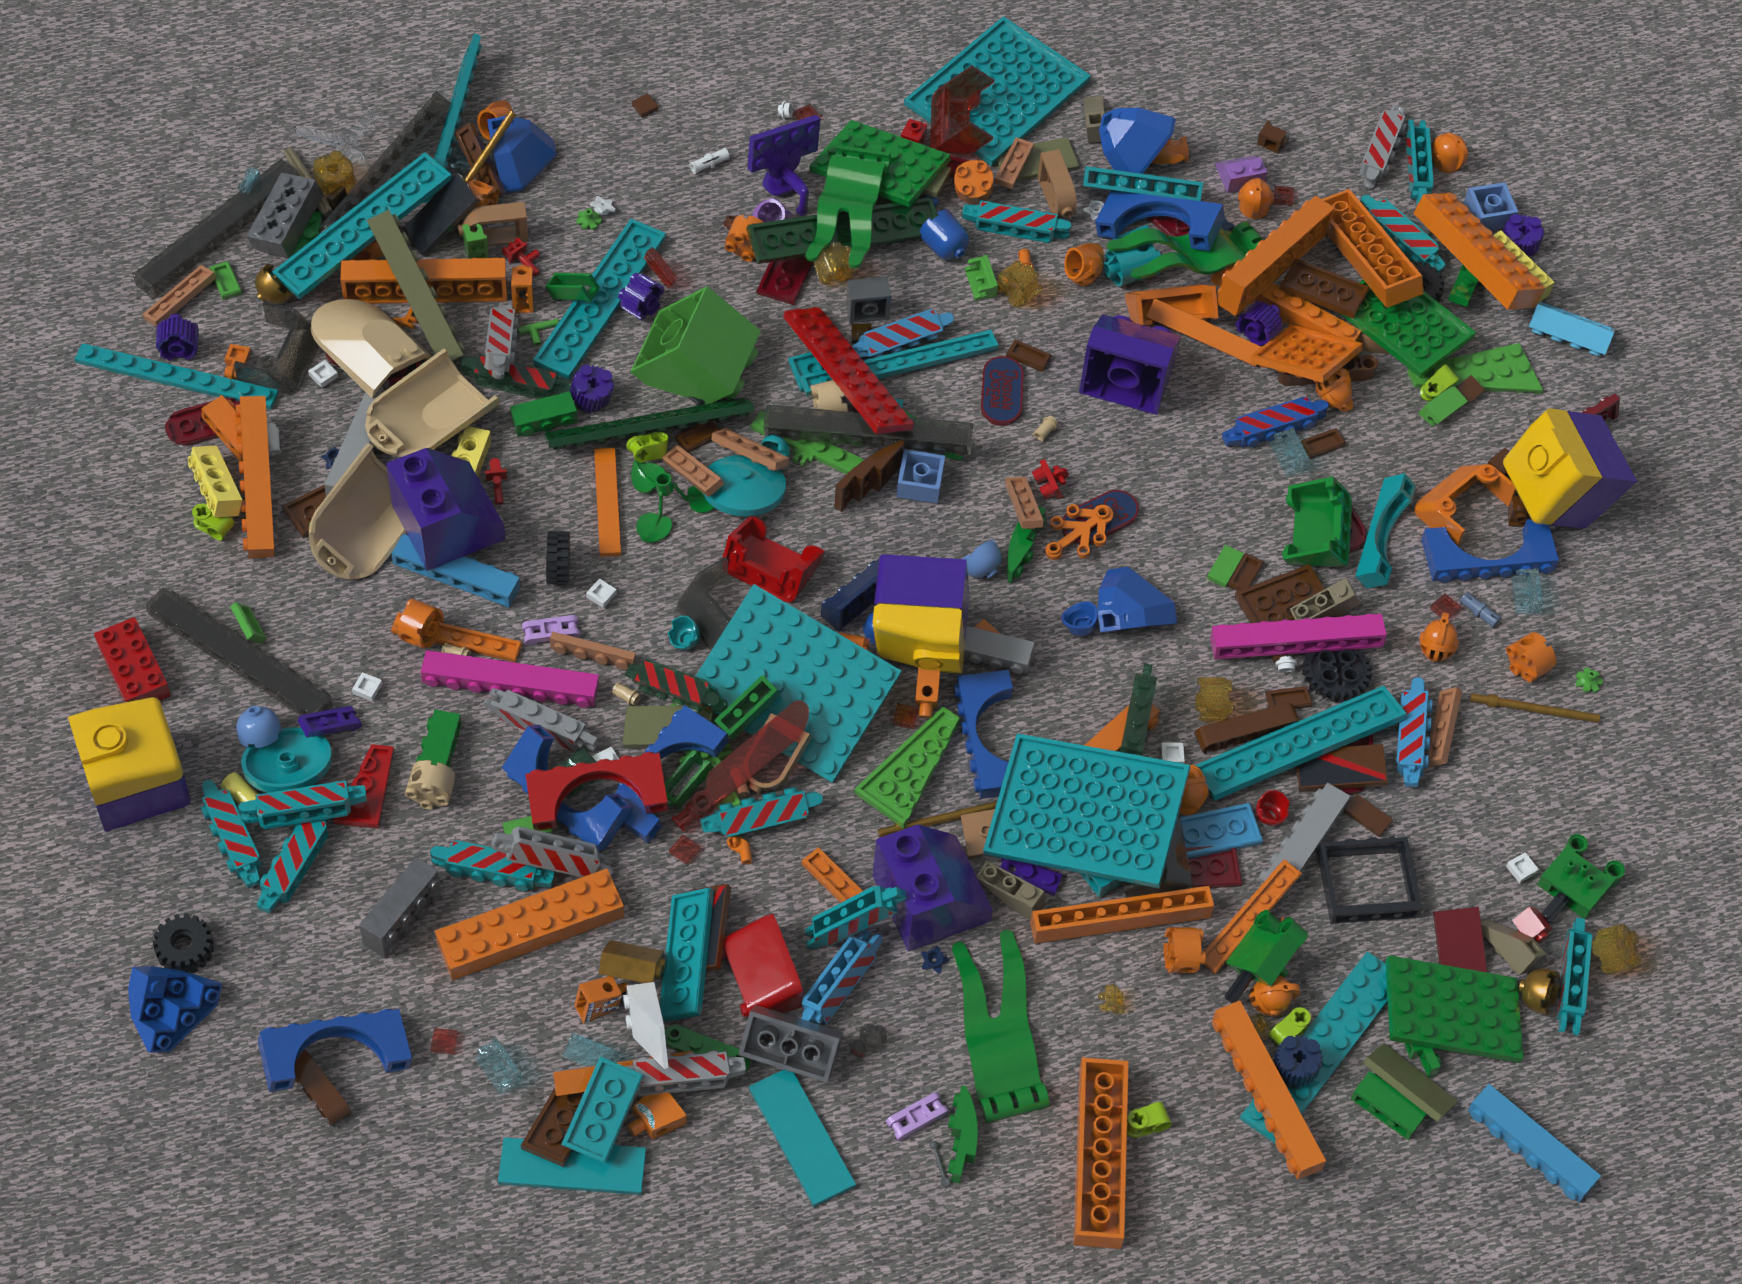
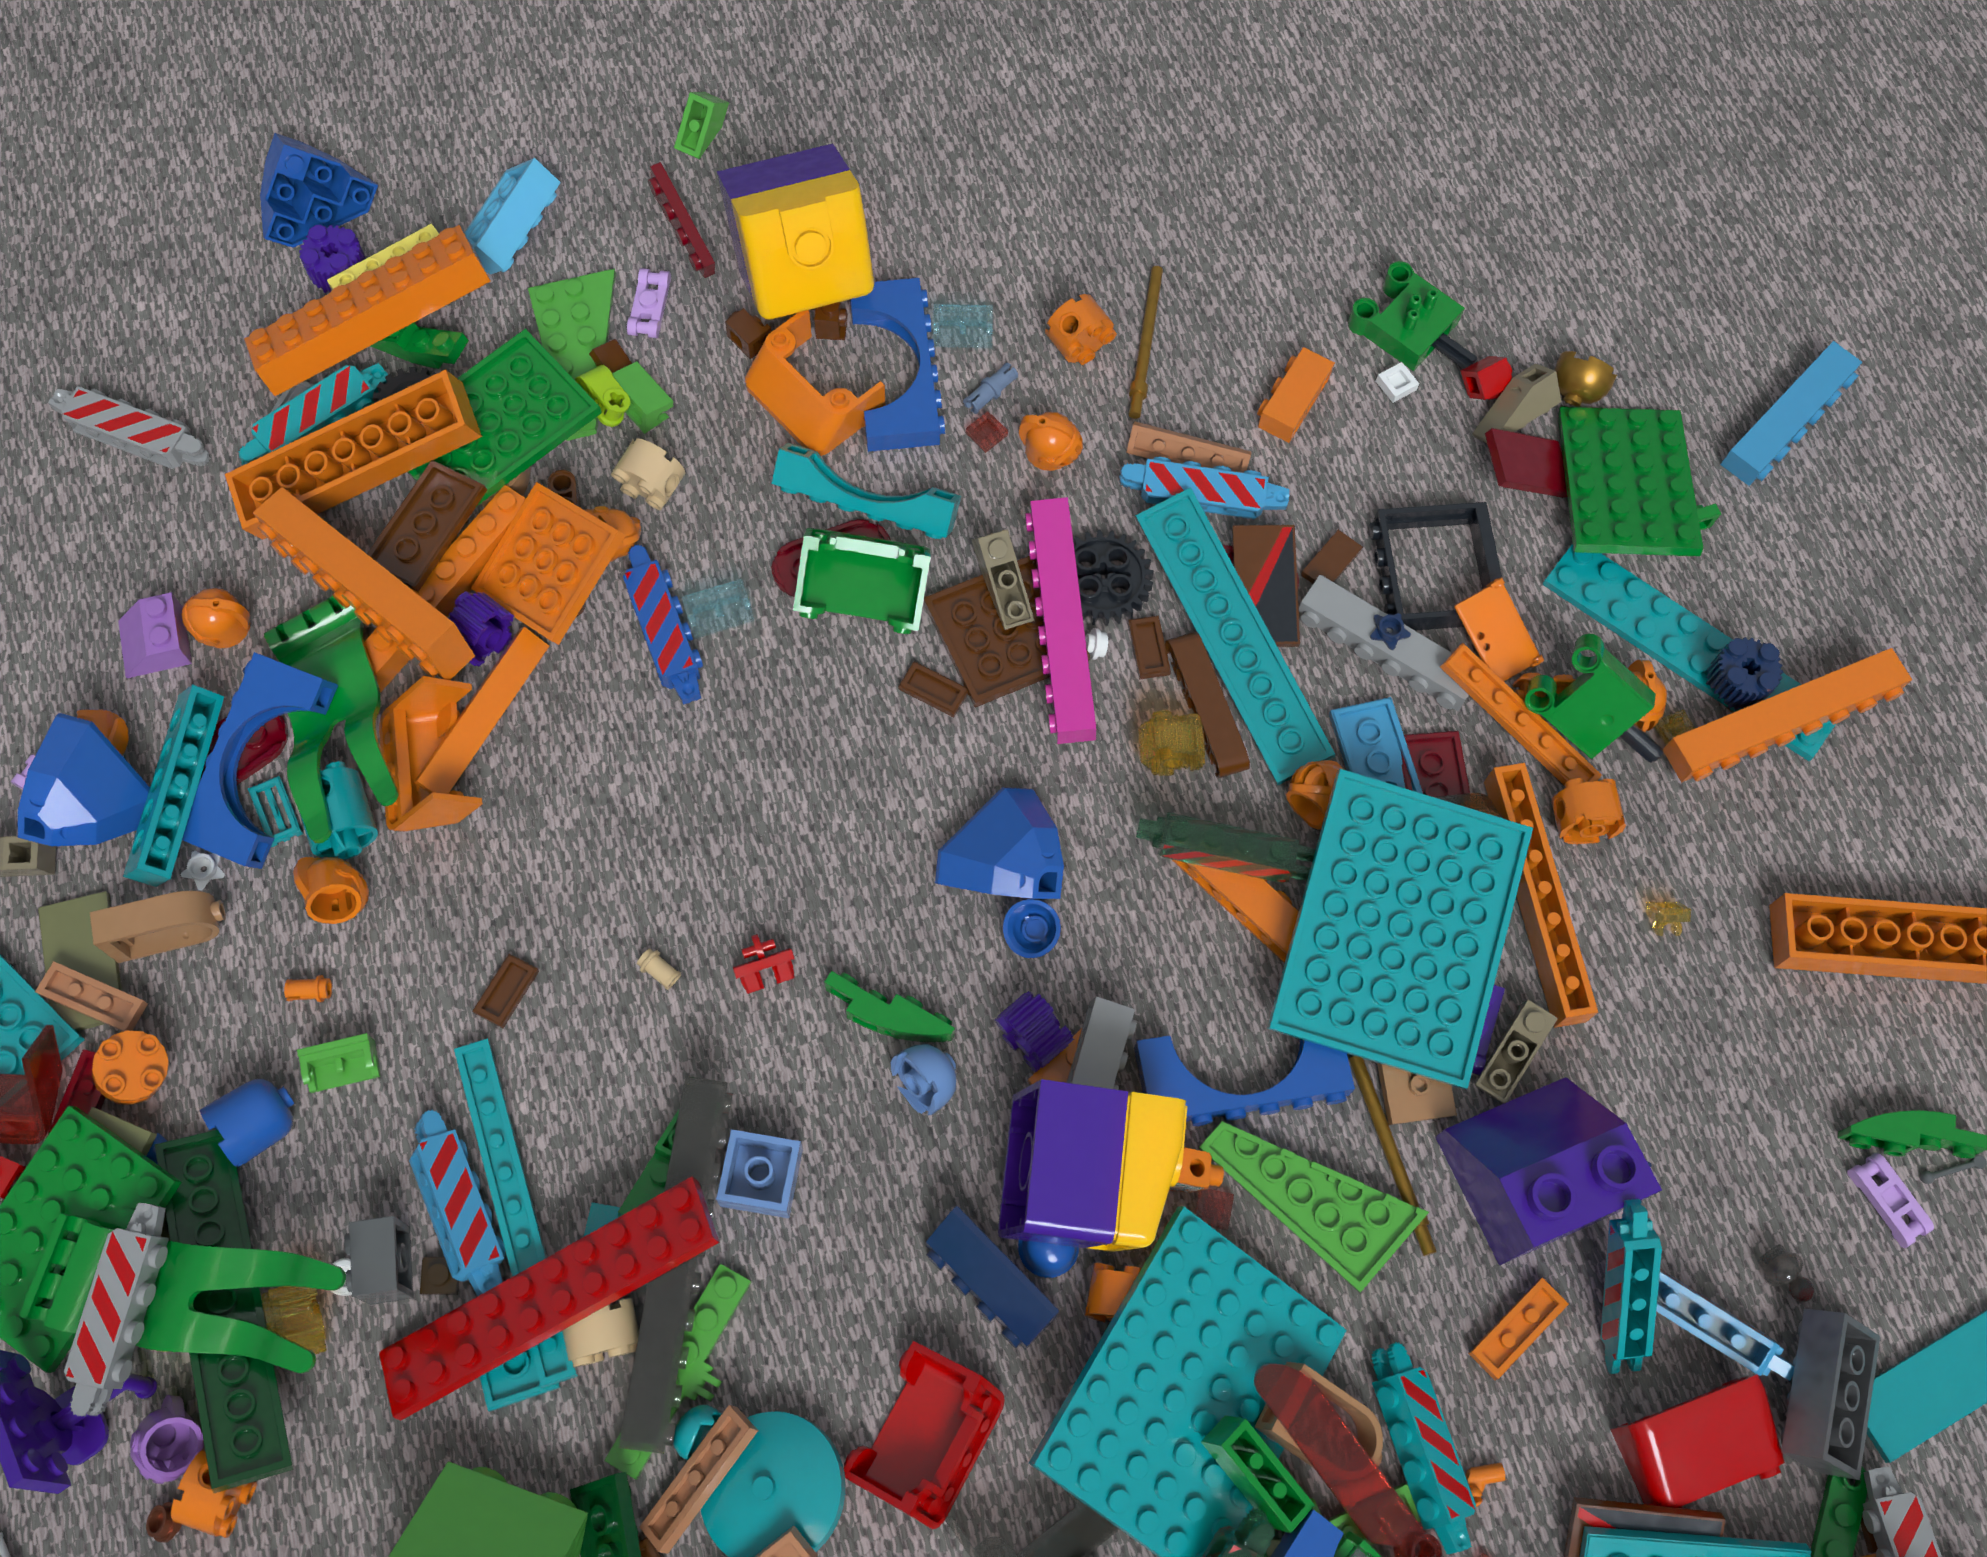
camera: 90 degrees left, 10 degrees up
(784, 279) = (316, 1420): dark red tile -> none
(839, 179) = (116, 1310): none -> light grey hinge
(869, 474) = (756, 1252): reddish brown slope -> none
(1001, 1046) = (1755, 1075): green flag -> none
(1002, 391) = (577, 1037): tile -> none
(1013, 614) = (1033, 1029): none -> dark purple brick
(1017, 221) = (219, 1001): teal hinge -> none
(1019, 283) = (364, 997): clear yellow brick -> none
(1024, 502) = (821, 1004): nougat plate -> none
(1080, 529) = (863, 919): orange plant -> none
(1124, 512) = (832, 893): tile -> none
(1129, 363) = (547, 820): dark purple slope -> none
(1151, 1120) = (1843, 873): lime piece -> none
(1172, 752) = (1257, 810): white plate -> none
(1225, 566) = (921, 716): bright green tile -> none
(1272, 138) = (89, 584): reddish brown brick -> none
(1275, 802) = (1344, 671): red hair -> none
(1283, 195) = (207, 577): clear red tile -> none
(1289, 1026) = (1681, 682): lime piece -> none
(1310, 829) = (1393, 622): none -> dark blue plate
(1320, 909) = (1502, 629): none -> orange door
(1323, 443) = (697, 562): reddish brown tile -> none
(1381, 408) = (648, 473): none -> tan brick
(1388, 1105) = (1768, 572): green brick -> none
(1410, 1082) = (1738, 543): olive tile -> none
(1419, 160) = (171, 378): teal hinge -> none
(1449, 152) = (158, 335): orange helmet -> none
(1491, 205) = (272, 288): medium blue brick -> none
(1500, 797) = (1294, 394): none -> orange brick
(1517, 410) = (649, 303): none -> lavender plate
(1573, 220) = (307, 190): none -> blue brick
(1574, 976) = (1550, 334): teal hinge -> none
(1589, 680) = (1097, 274): bright green plant -> none
(1617, 948) = (1521, 283): clear yellow brick -> none
(1673, 434) = (700, 123): none -> bright green slope

